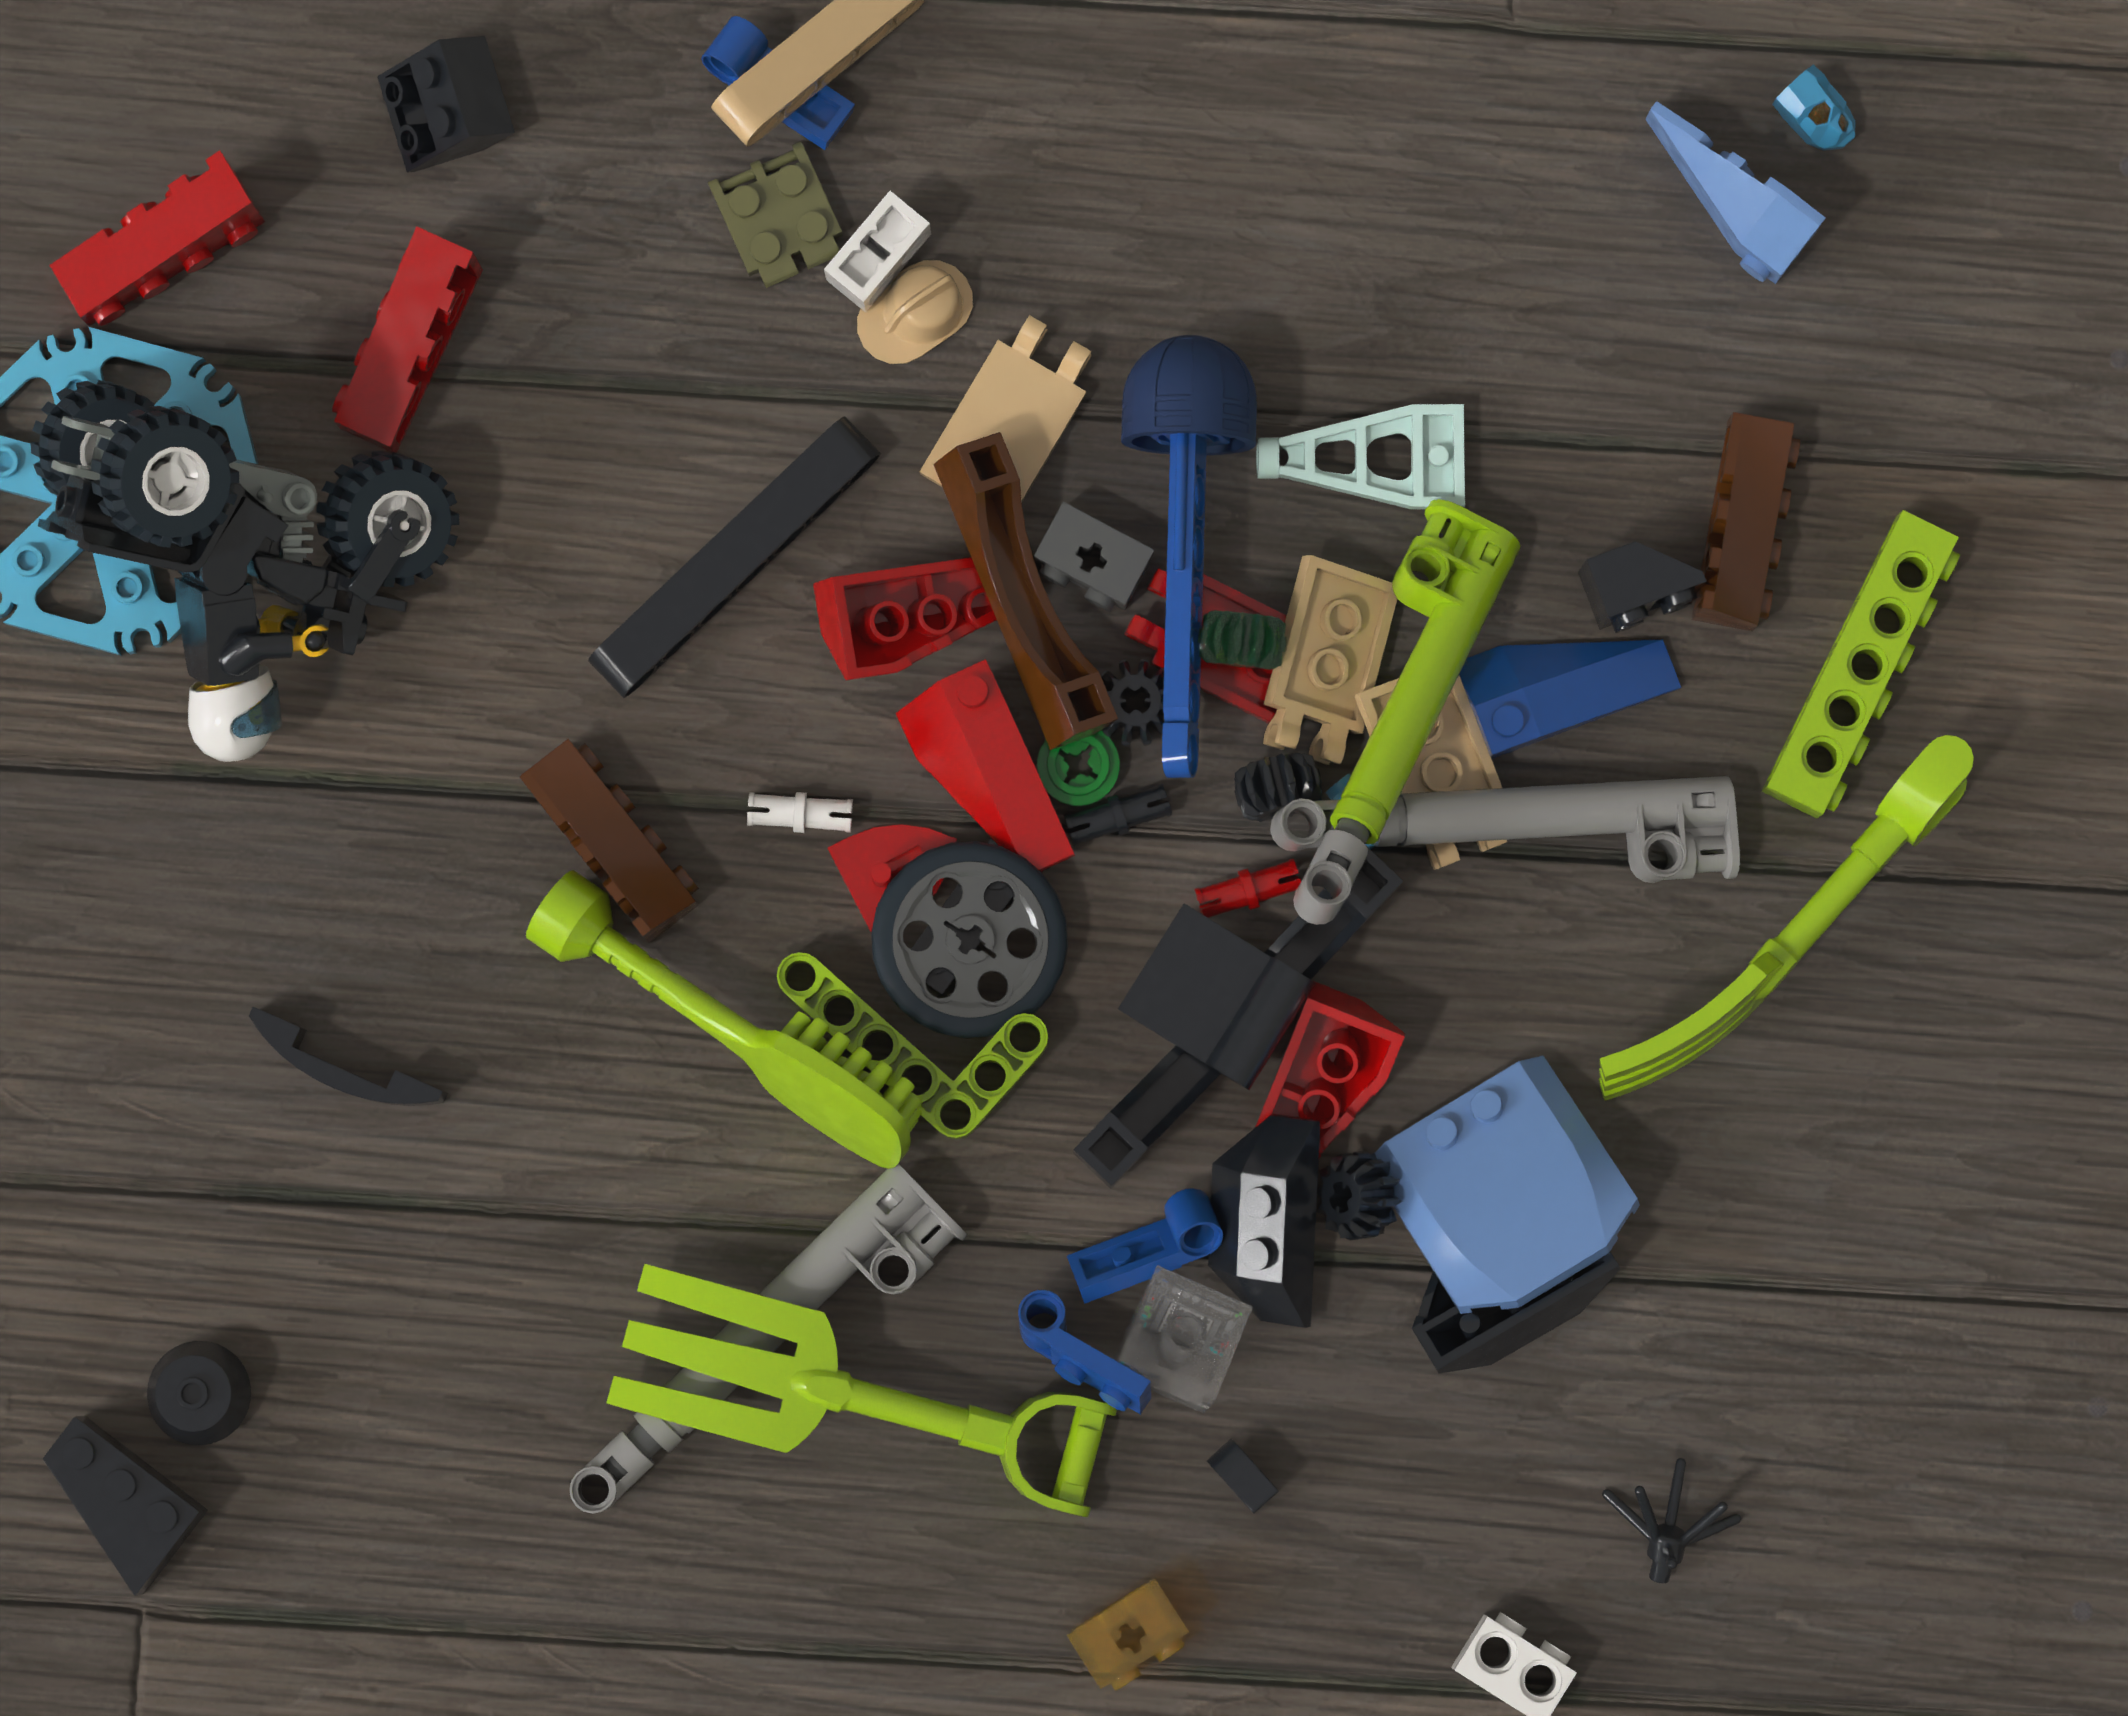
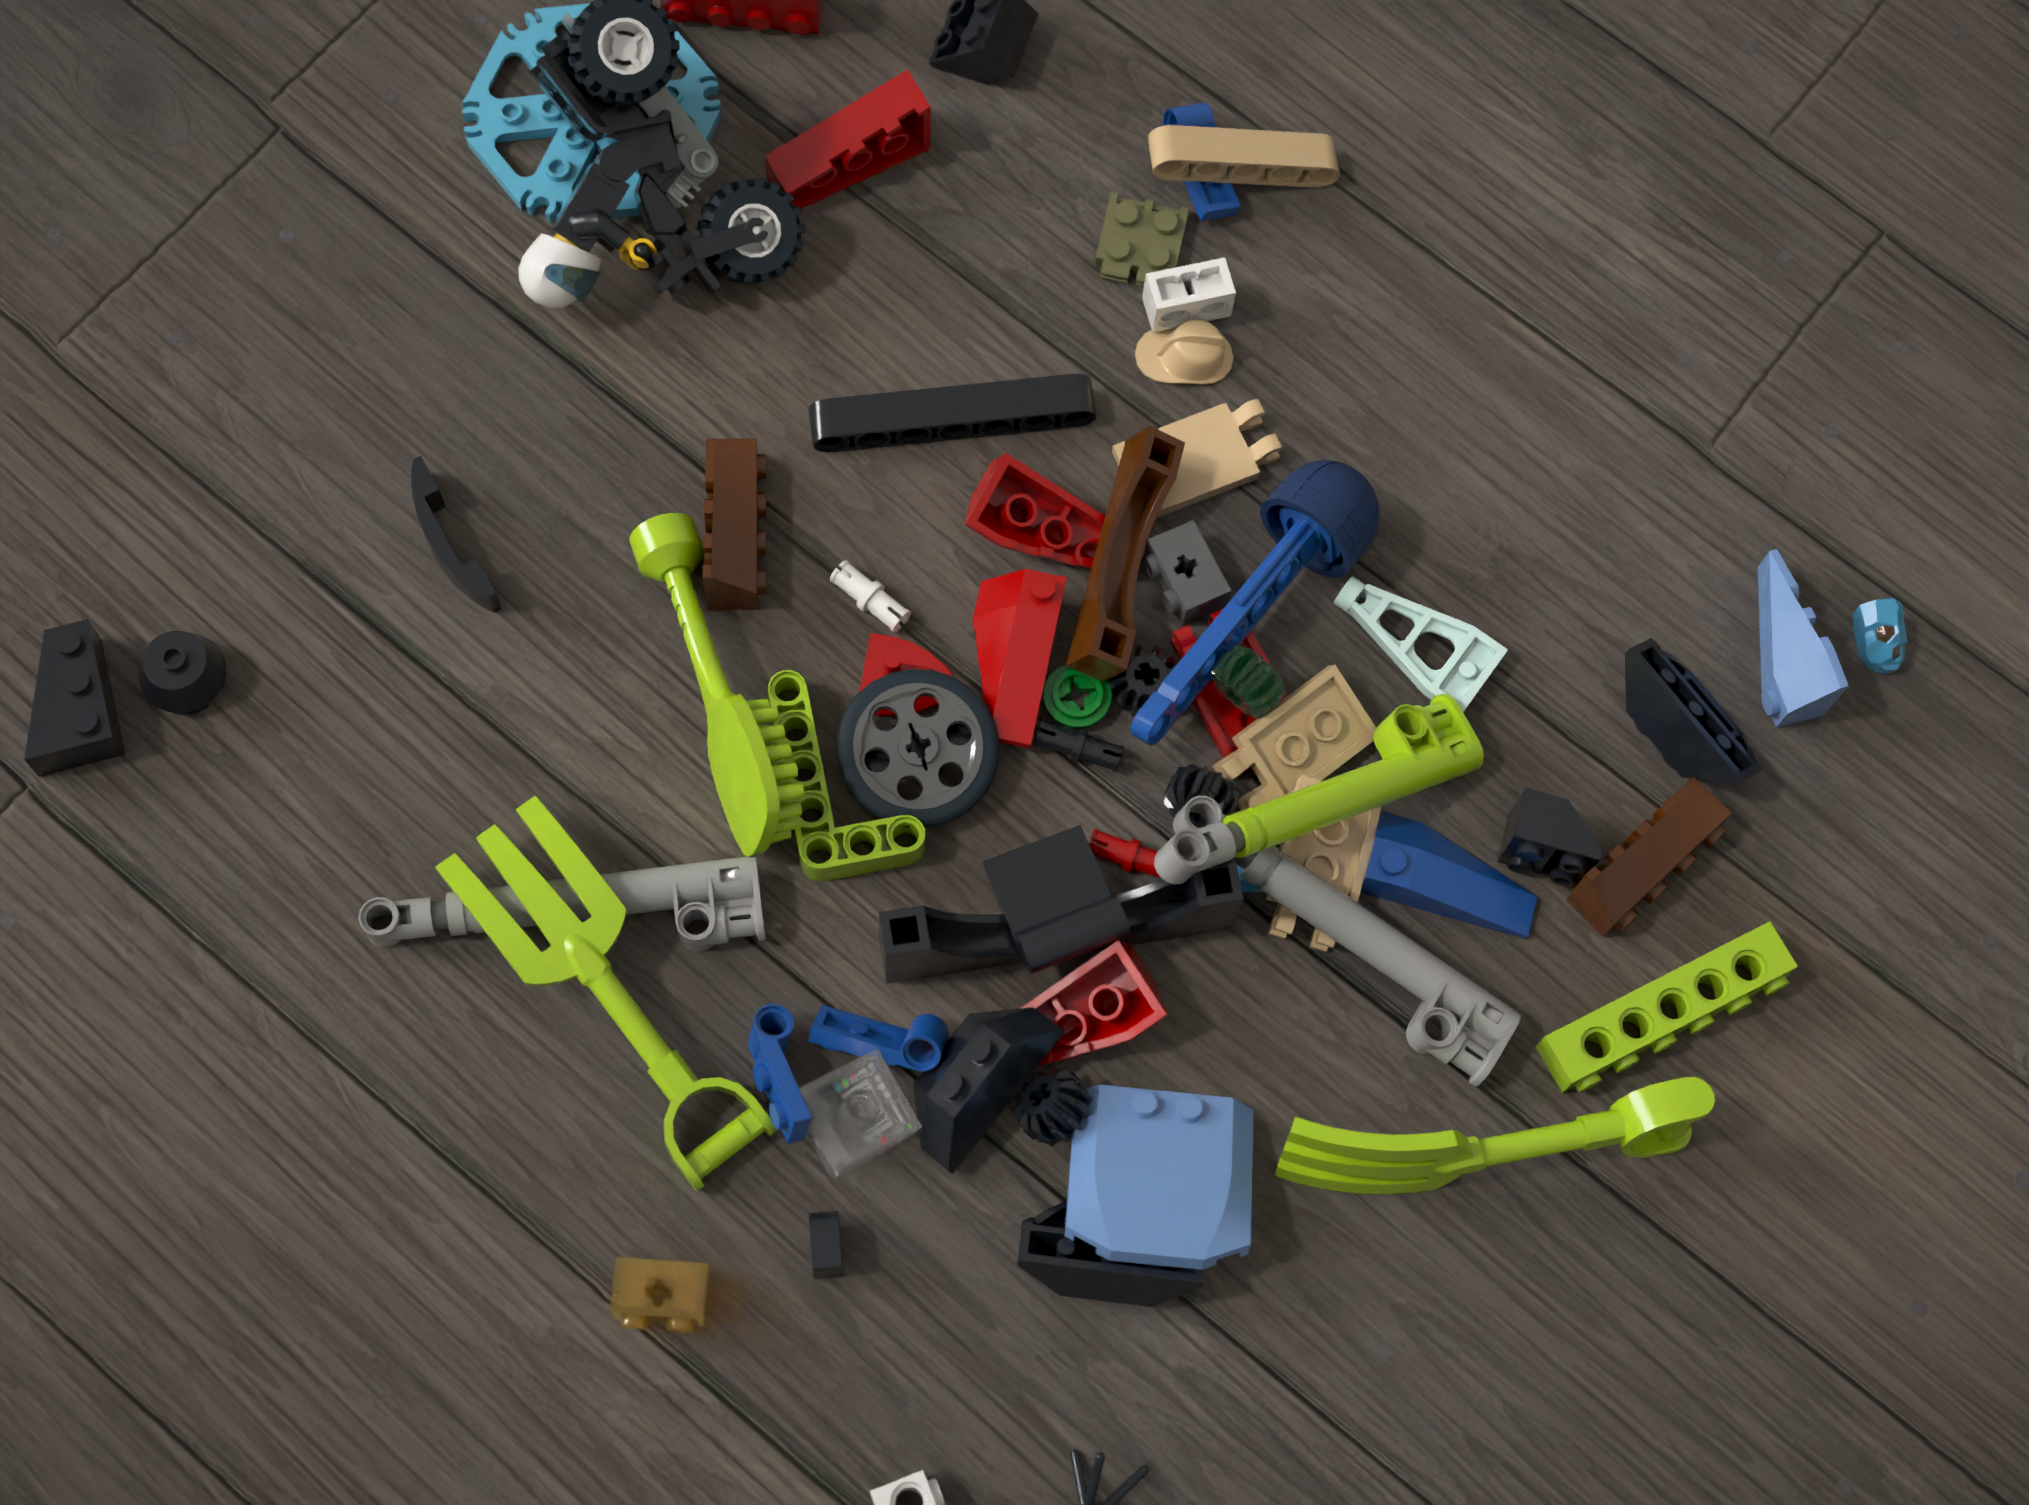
camera: 30 degrees right, 15 degrees down
(1688, 350) = (1684, 719): none -> black wedge

